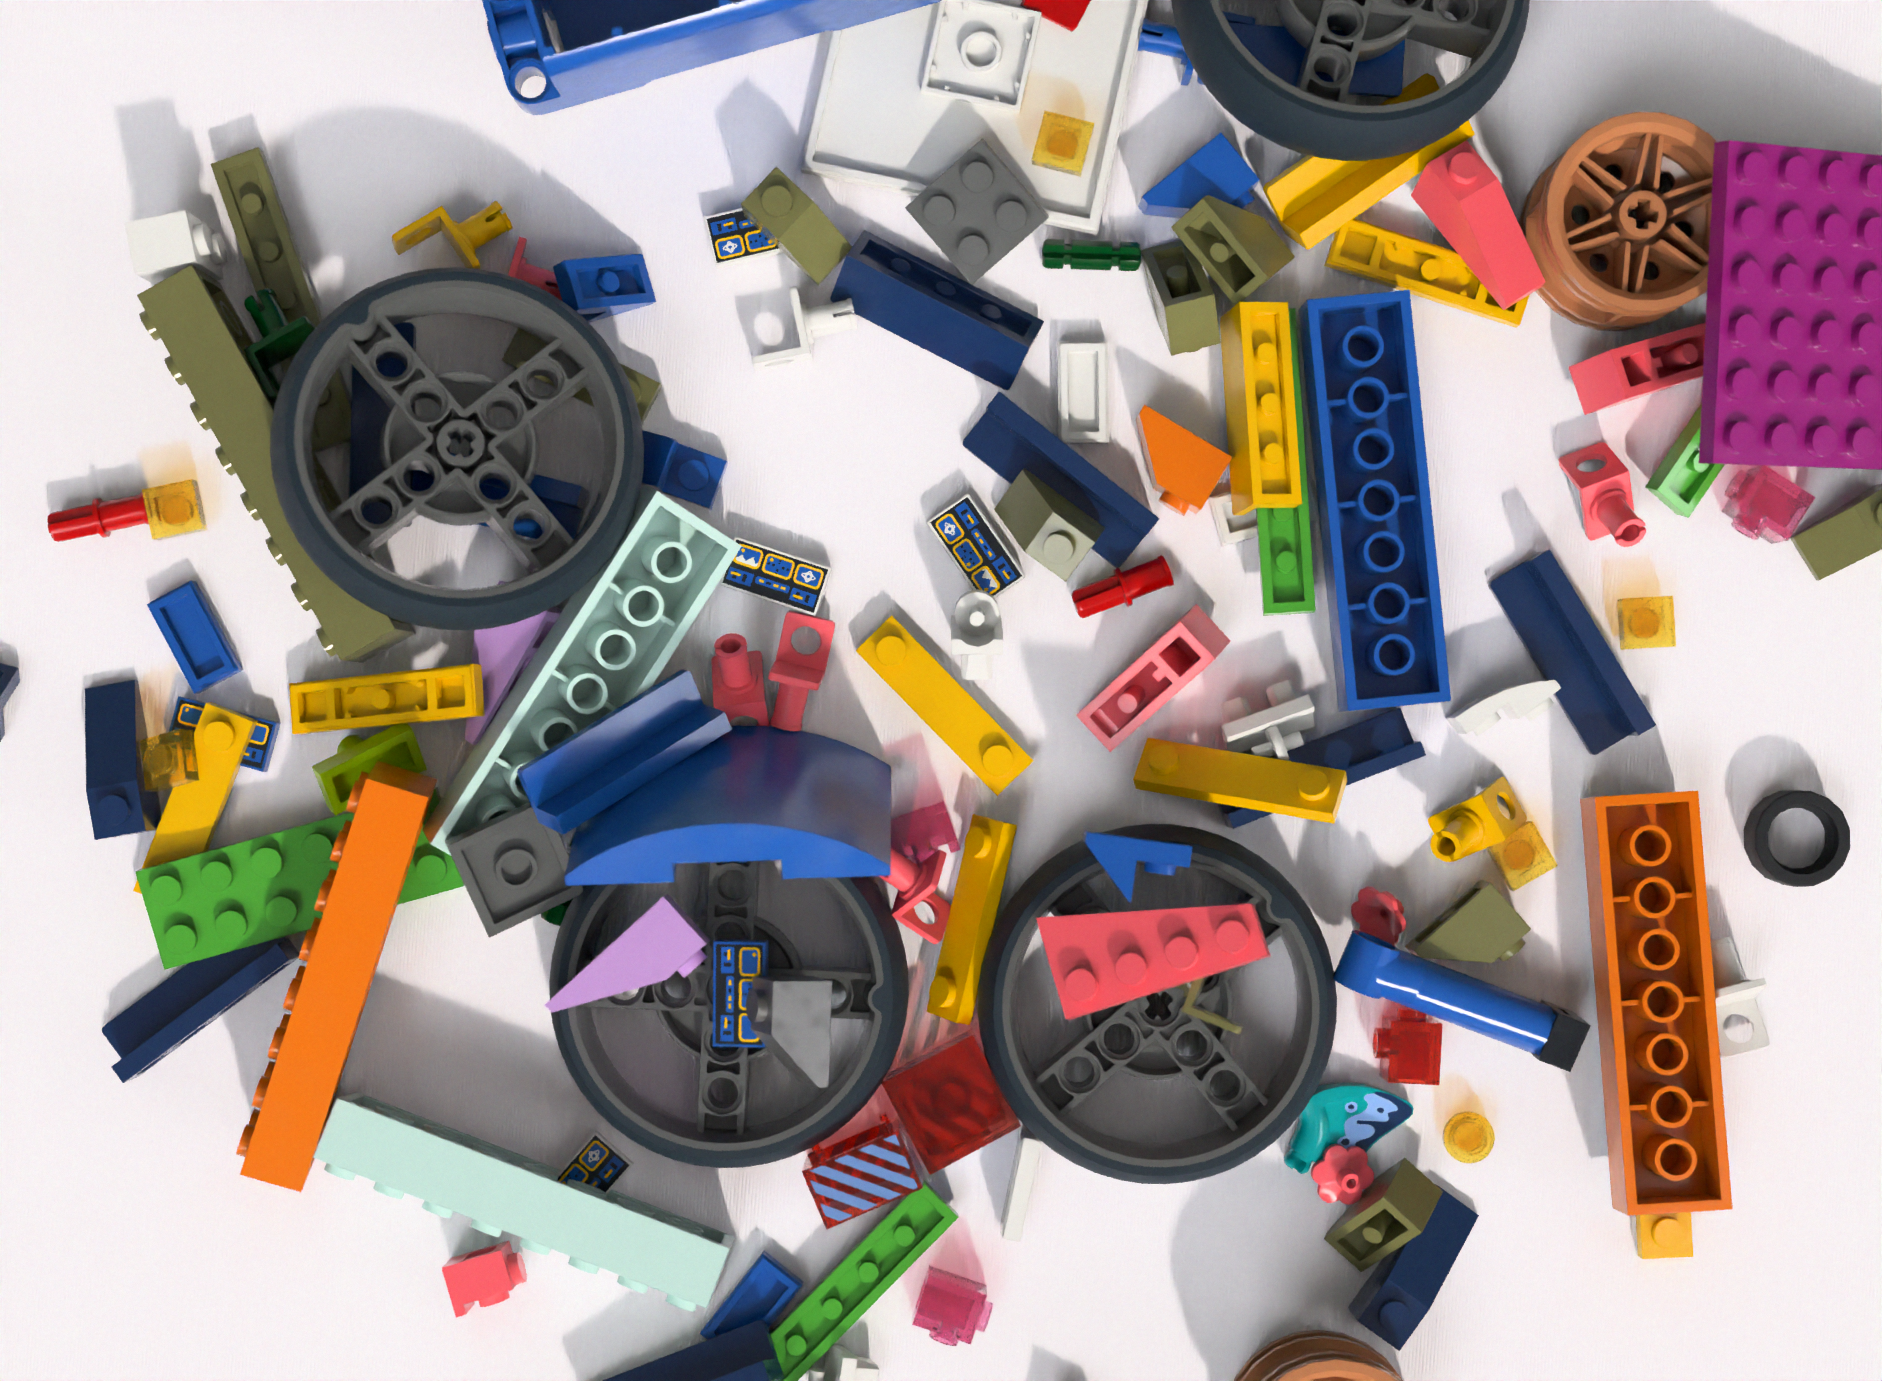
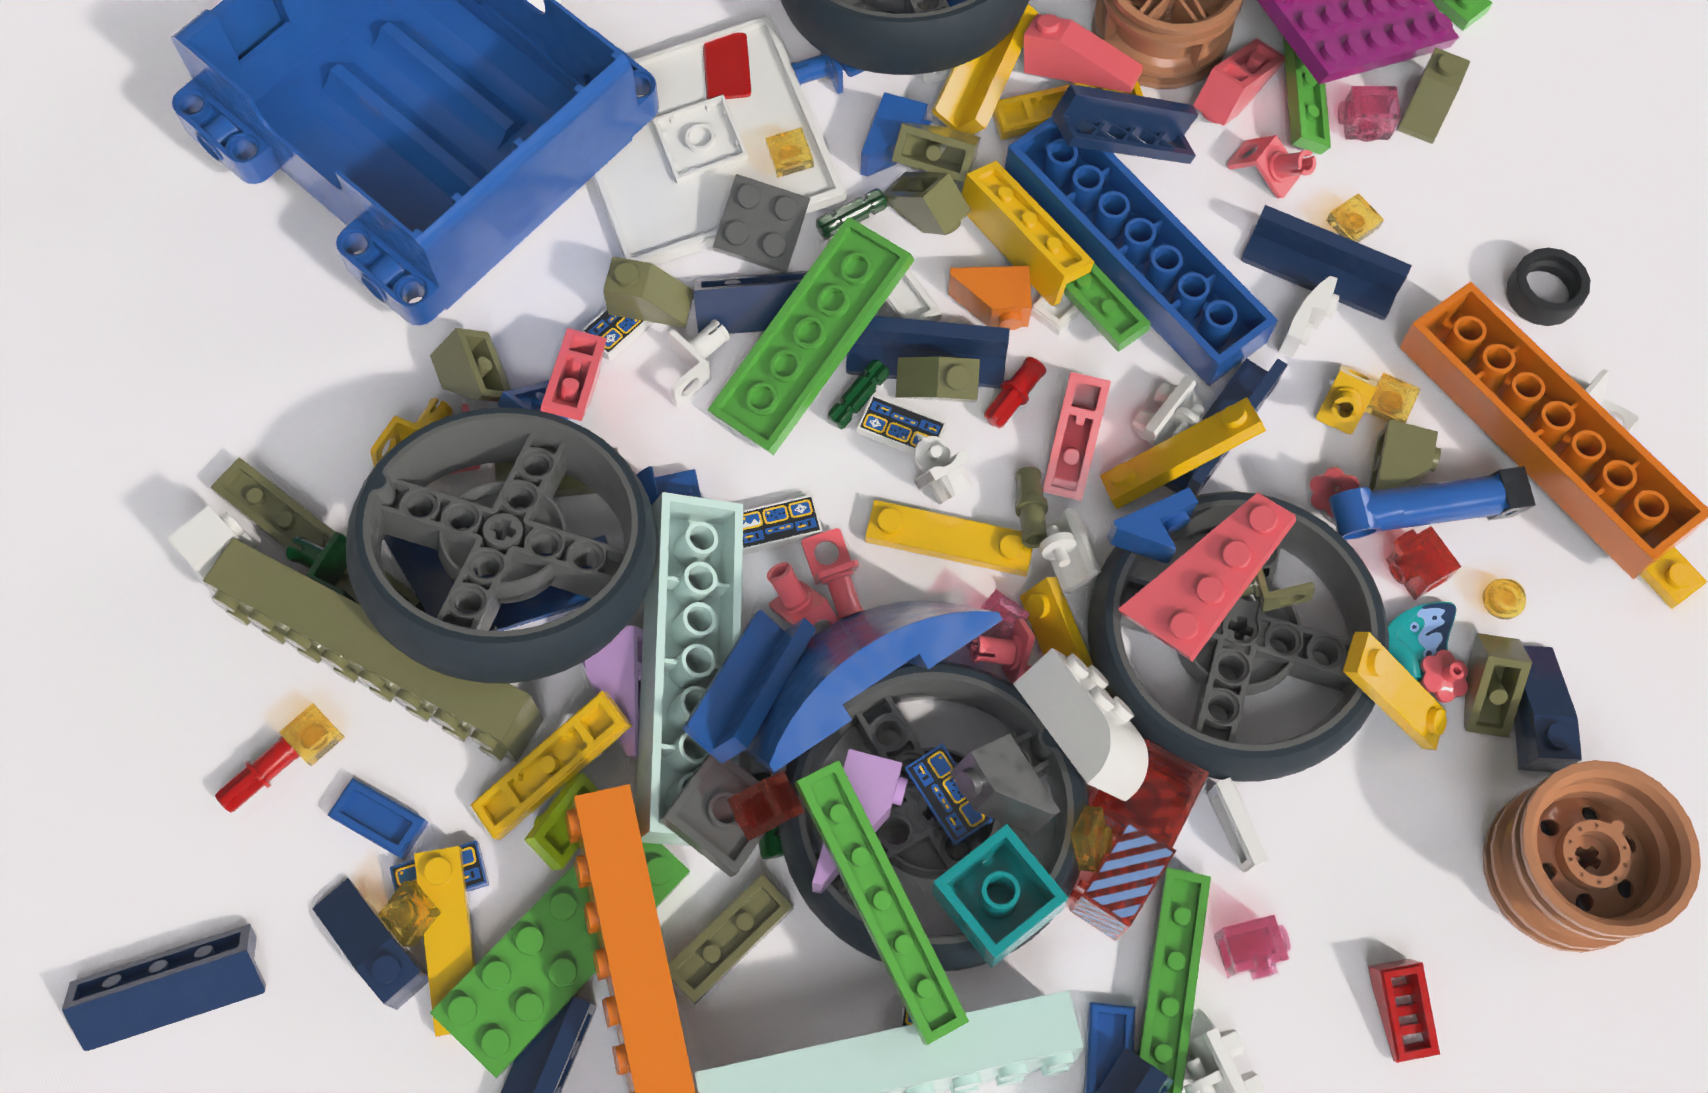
camera: 30 degrees left, 20 degrees down
(460, 975) = (728, 939): none -> olive plate
(545, 902) = (765, 805): none -> clear red brick
(554, 200) = (470, 365): none -> olive slope
(596, 1063) = (881, 903): none -> bright green plate
(649, 289) = (574, 375): none -> coral slope
(714, 1129) = (999, 895): none -> teal brick
(852, 1121) = (1091, 838): none -> clear yellow plate
(922, 1012) = (1087, 722): none -> white brick
(940, 391) = (811, 335): none -> bright green plate
(953, 483) = (858, 394): none -> dark green axle
(1047, 730) = (1031, 506): none -> olive pin
(1050, 806) = (1070, 552): none -> white hips
(1260, 1171) = (1395, 690): none -> yellow plate
(1463, 341) = (1125, 118): none -> dark blue fence

